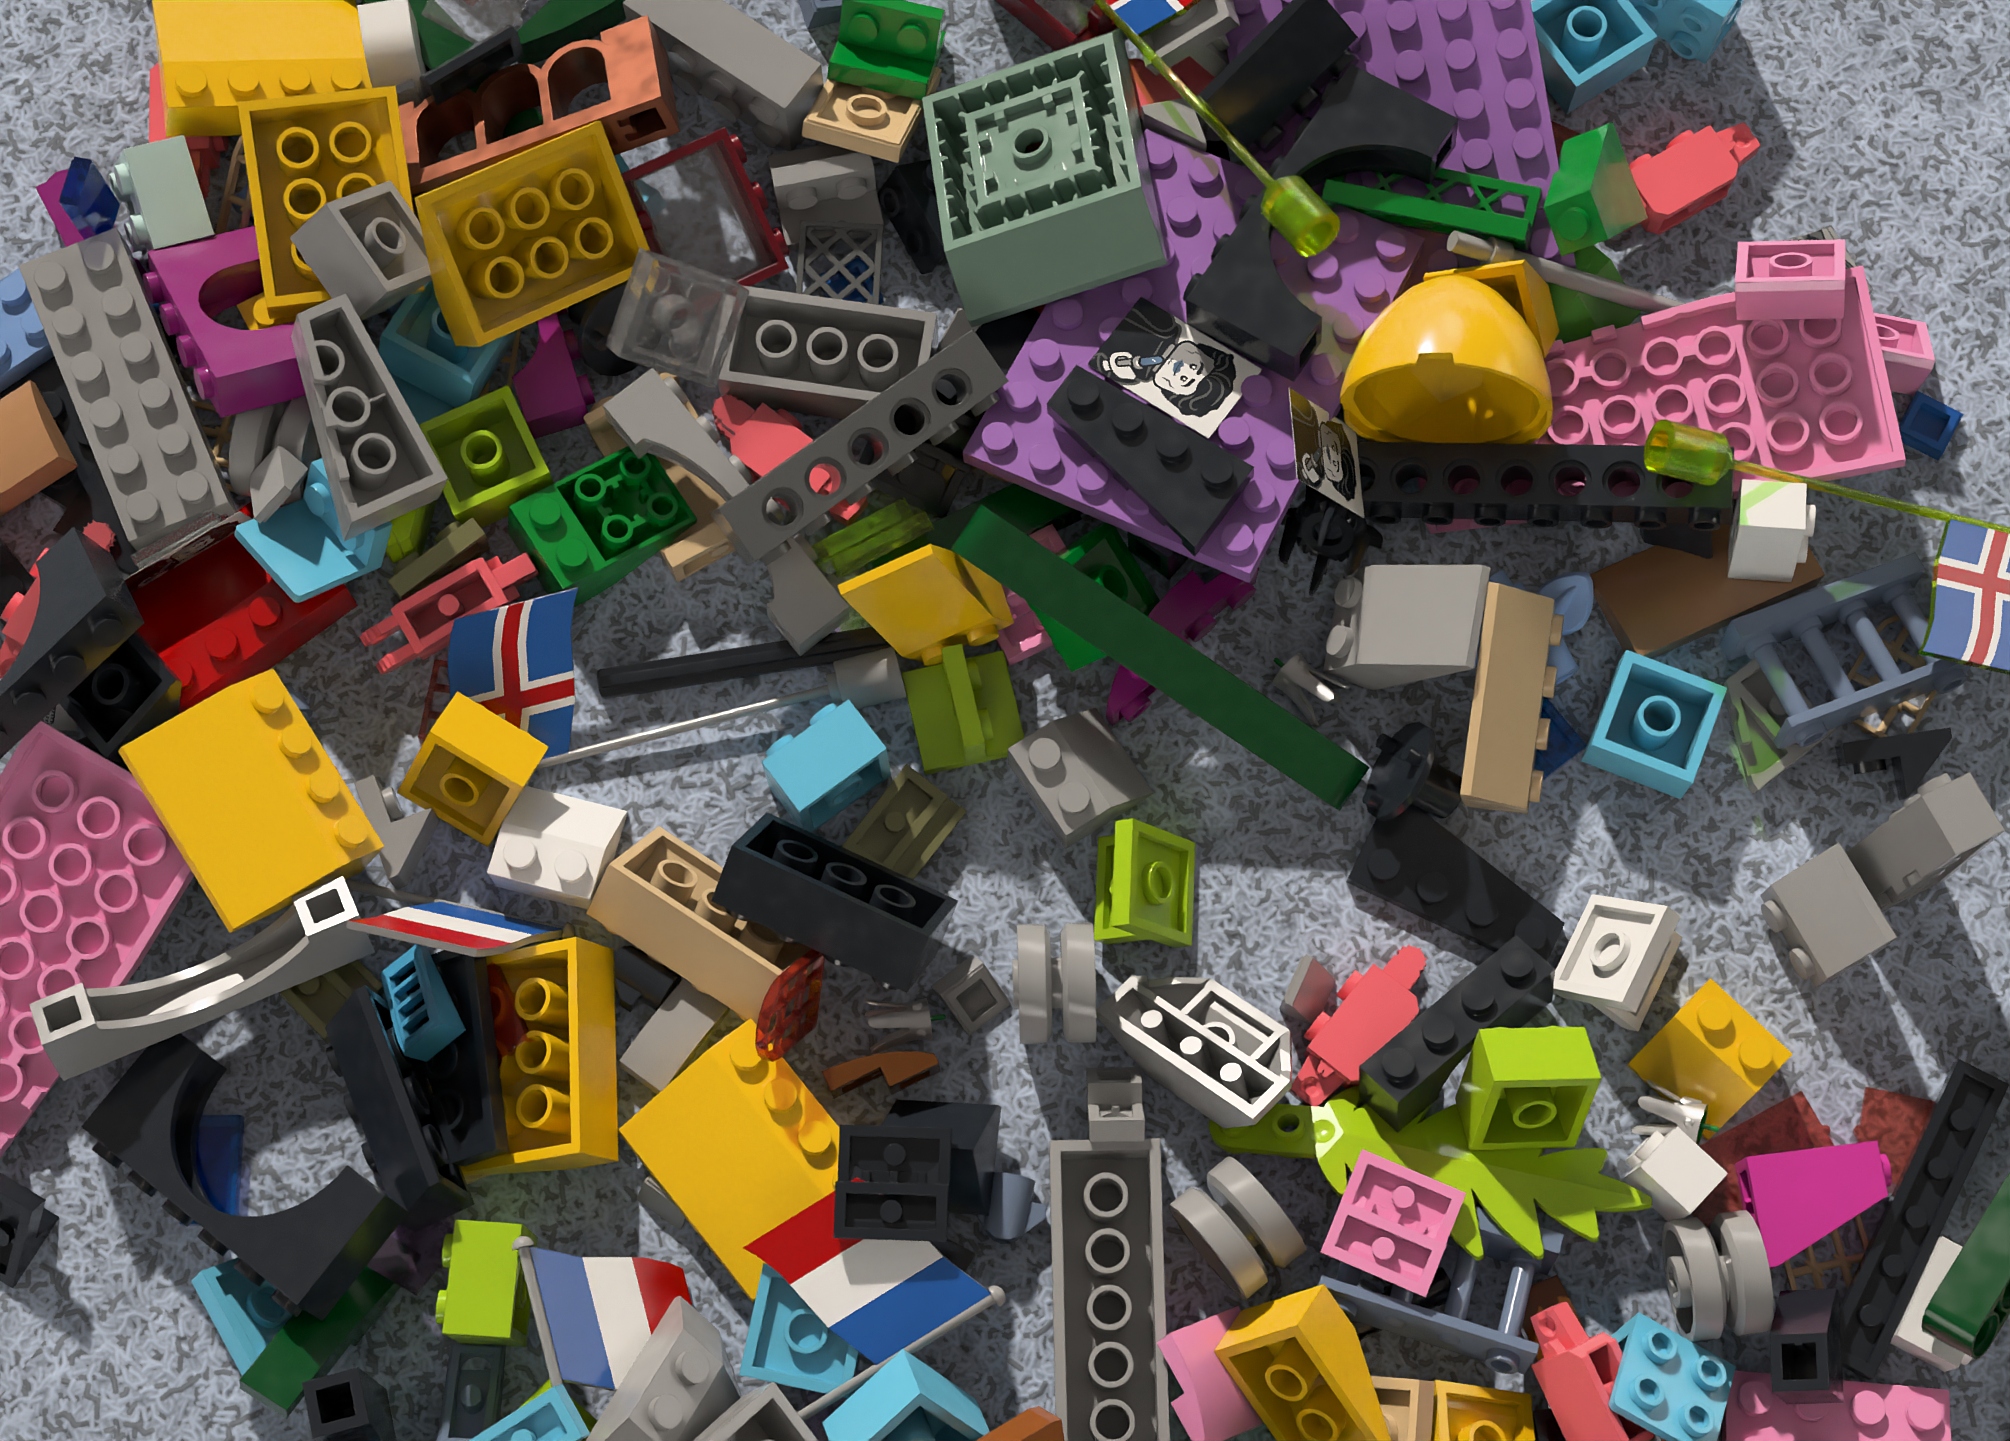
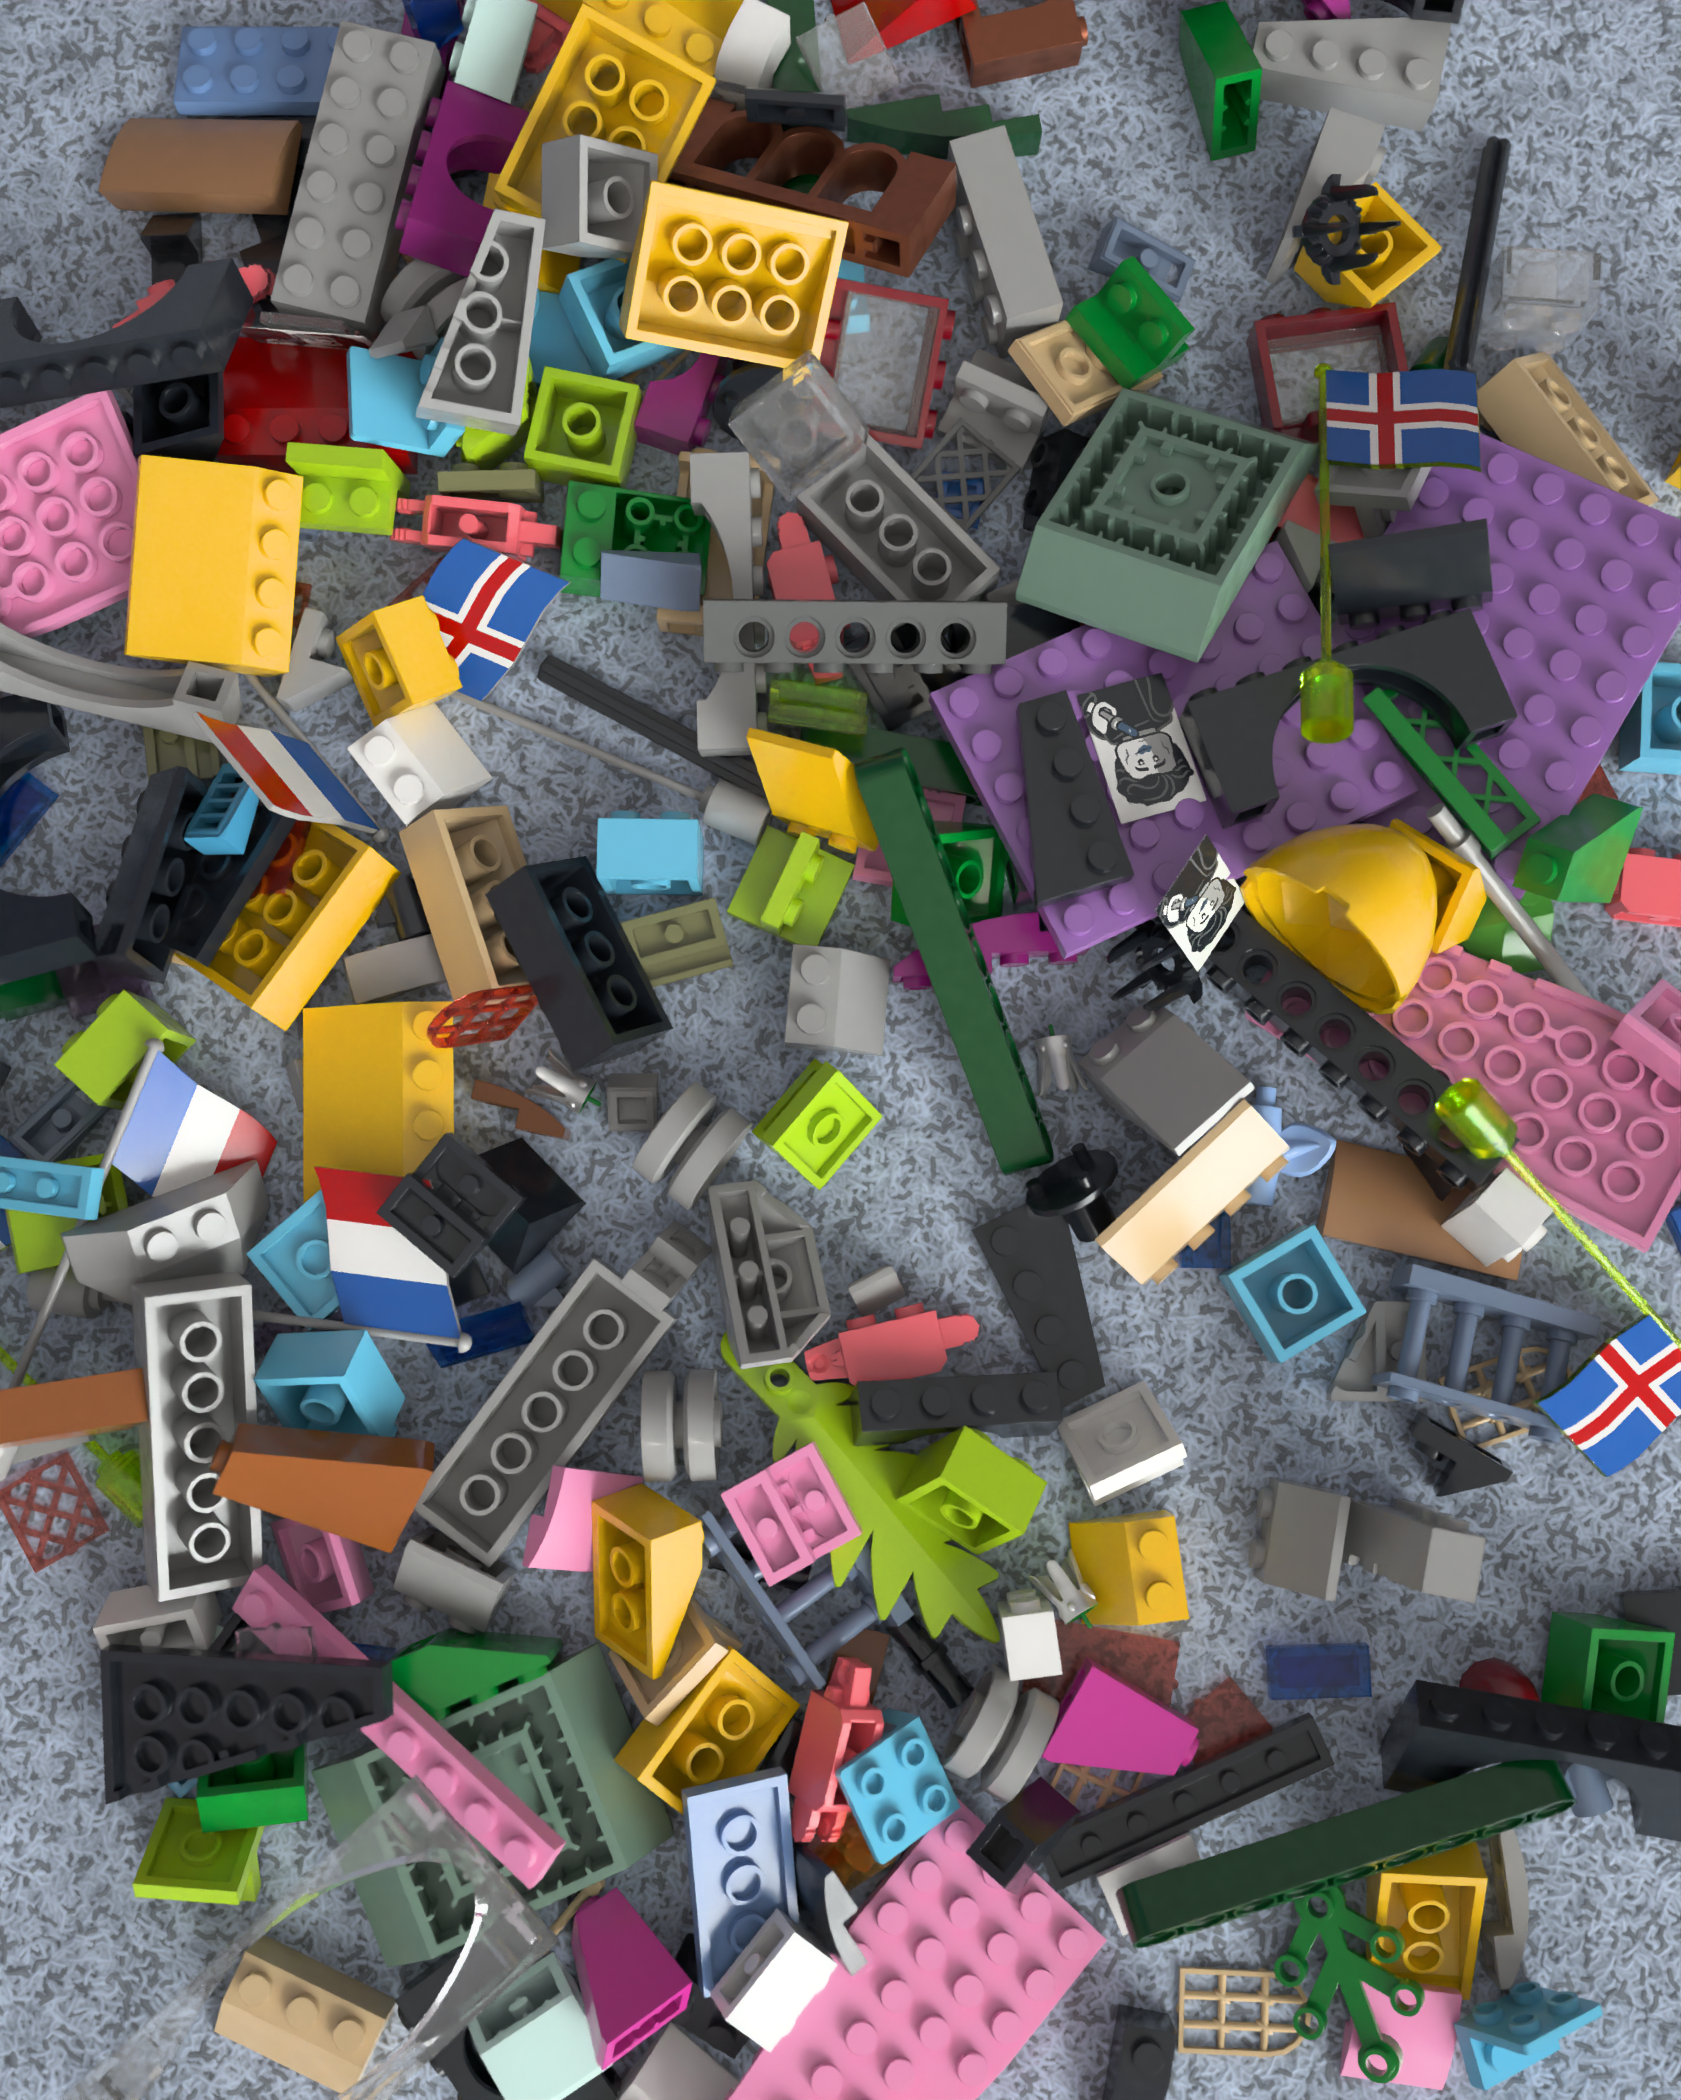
camera: 35 degrees right, 10 degrees up
(316, 652) = (347, 487): none -> lime bracket
(647, 534) = (652, 579): none -> sand blue slope
(1016, 1272) = (490, 1333): none -> clear blue tile
(1609, 1270) = (932, 1661): none -> black pin
(1932, 1023) = (1318, 1671): none -> clear blue tile

